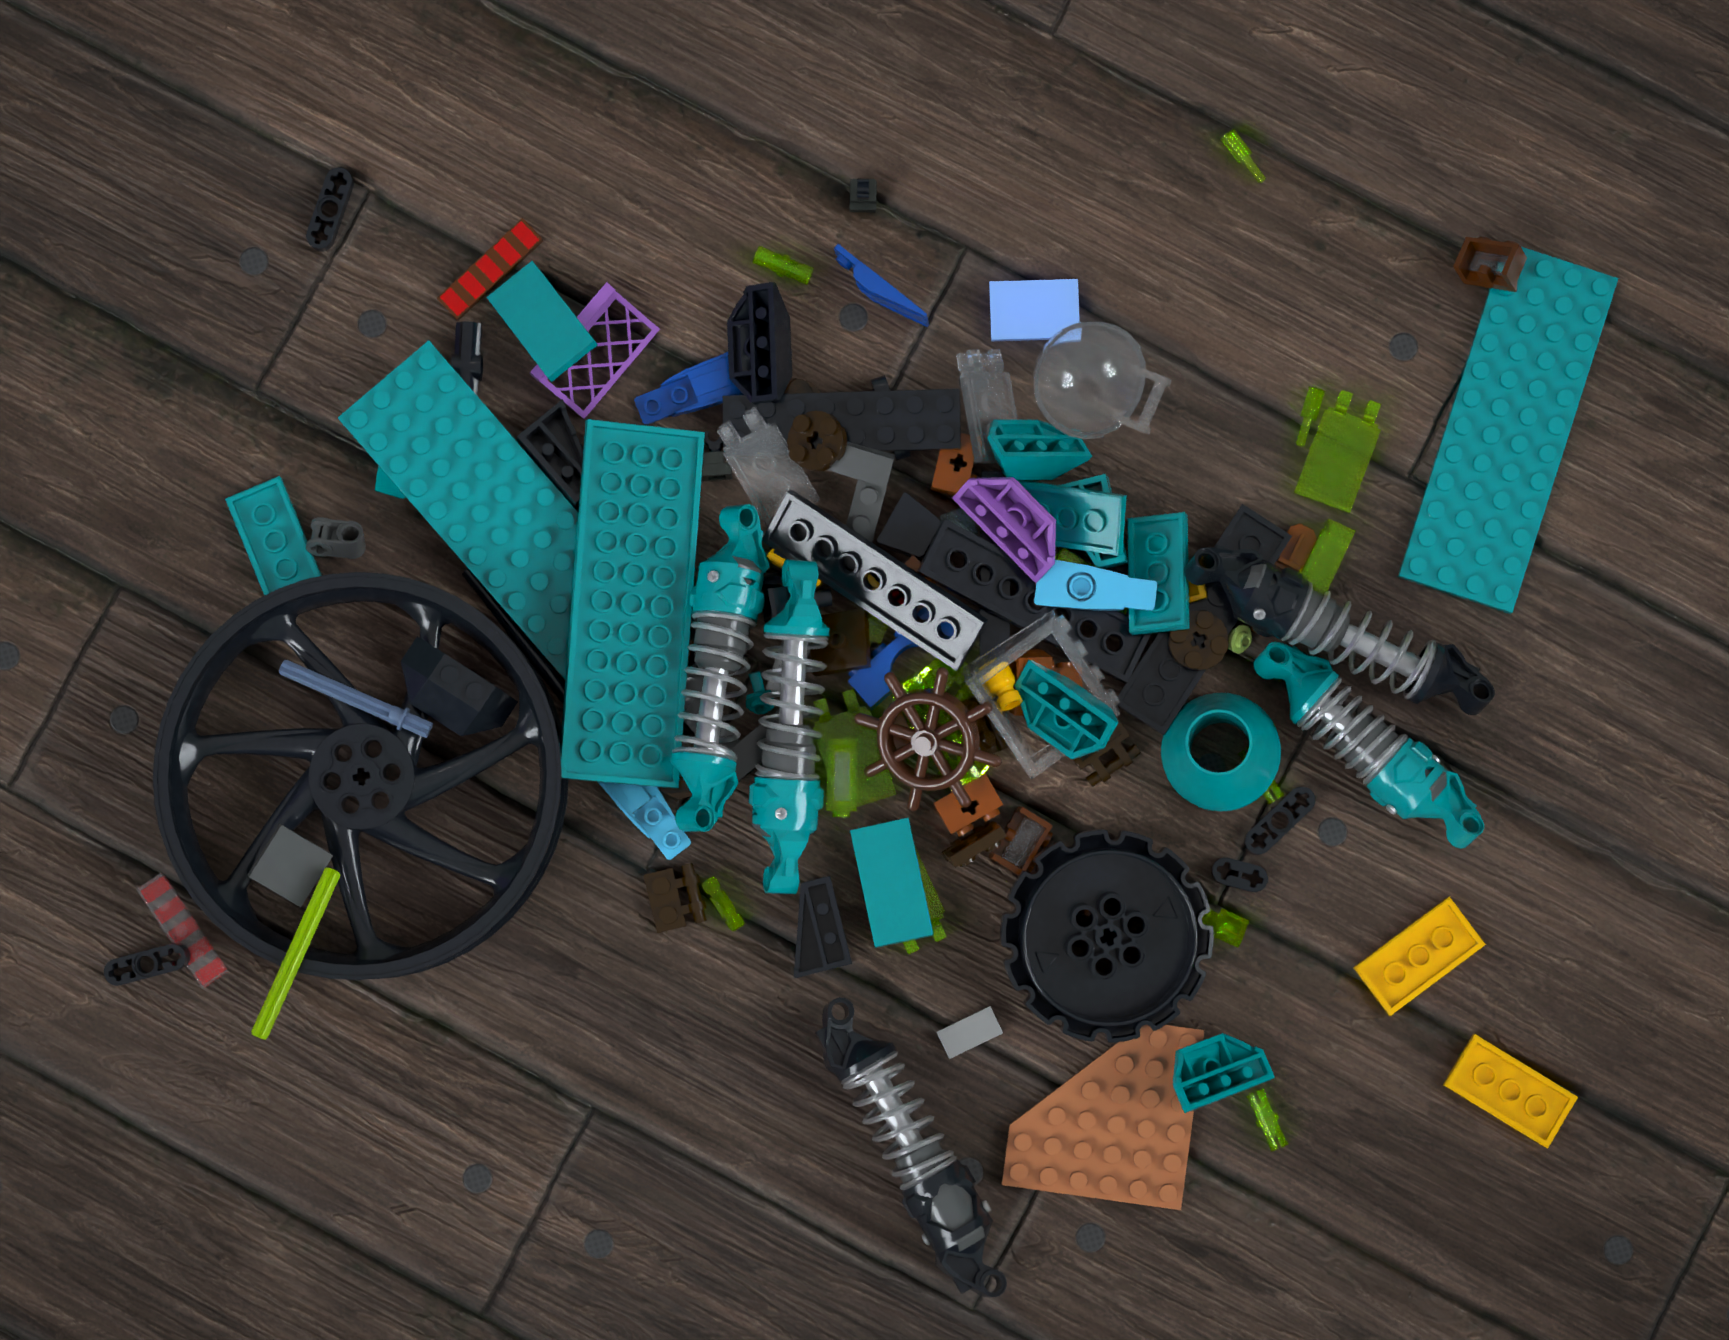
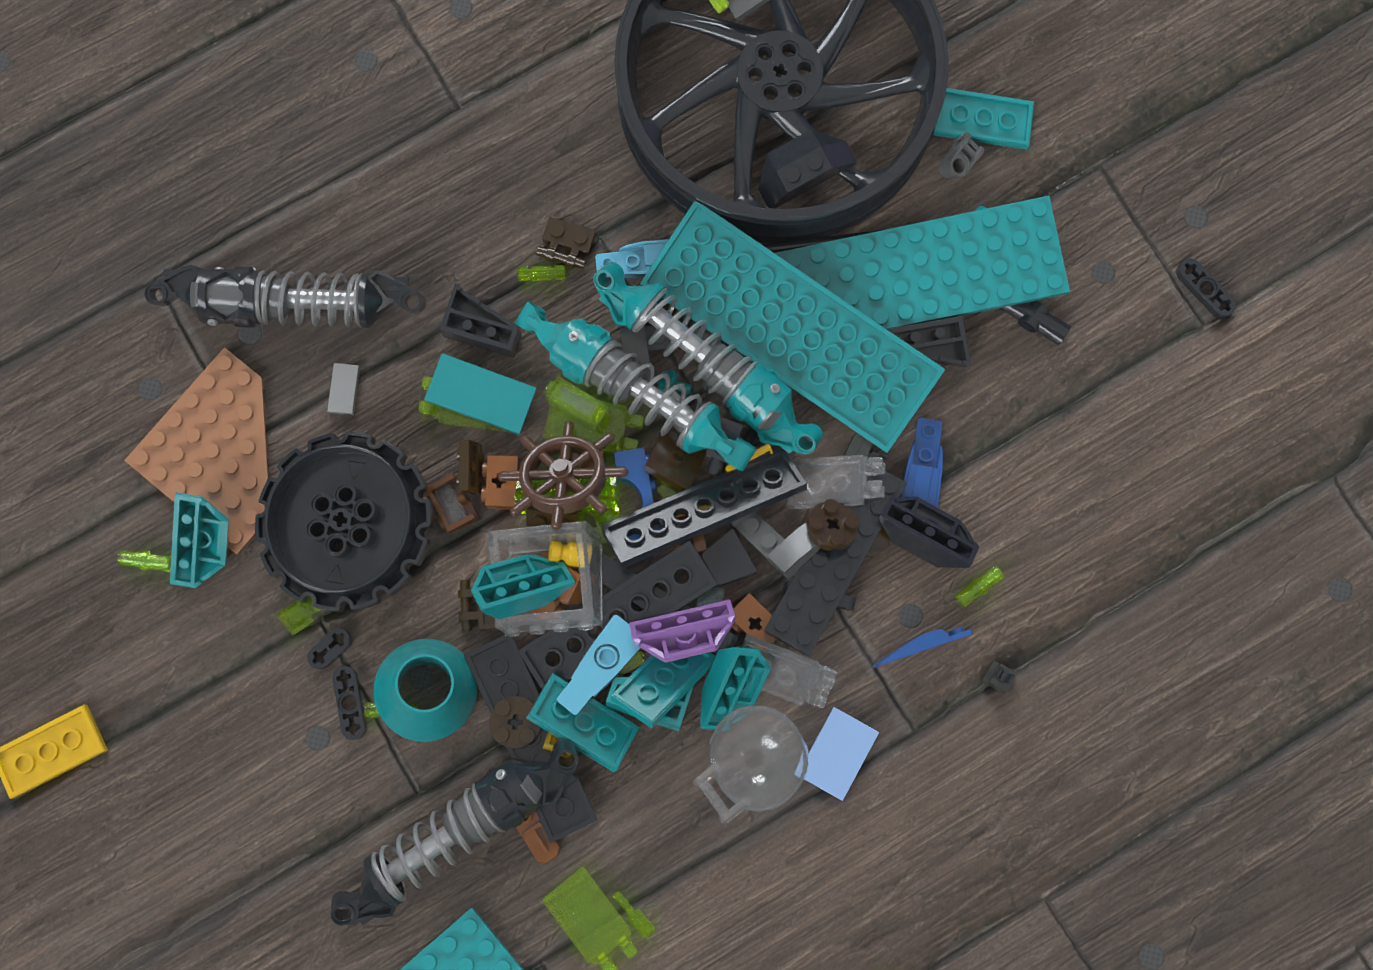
camera: 120 degrees right, 5 degrees down
(355, 698) = (837, 95): sand blue axle -> none
(490, 269) = (1097, 375): tile -> none
(542, 321) = (1037, 385): teal tile -> none
(589, 318) = (1015, 407): medium lavender fence -> none
(1239, 639) = (498, 754): yellowish green plate -> none
(1327, 555) = (518, 859): clear neon green window -> none
(1395, 768) = (332, 807): teal piece -> none
(1419, 956) = (187, 745): yellow tile -> none

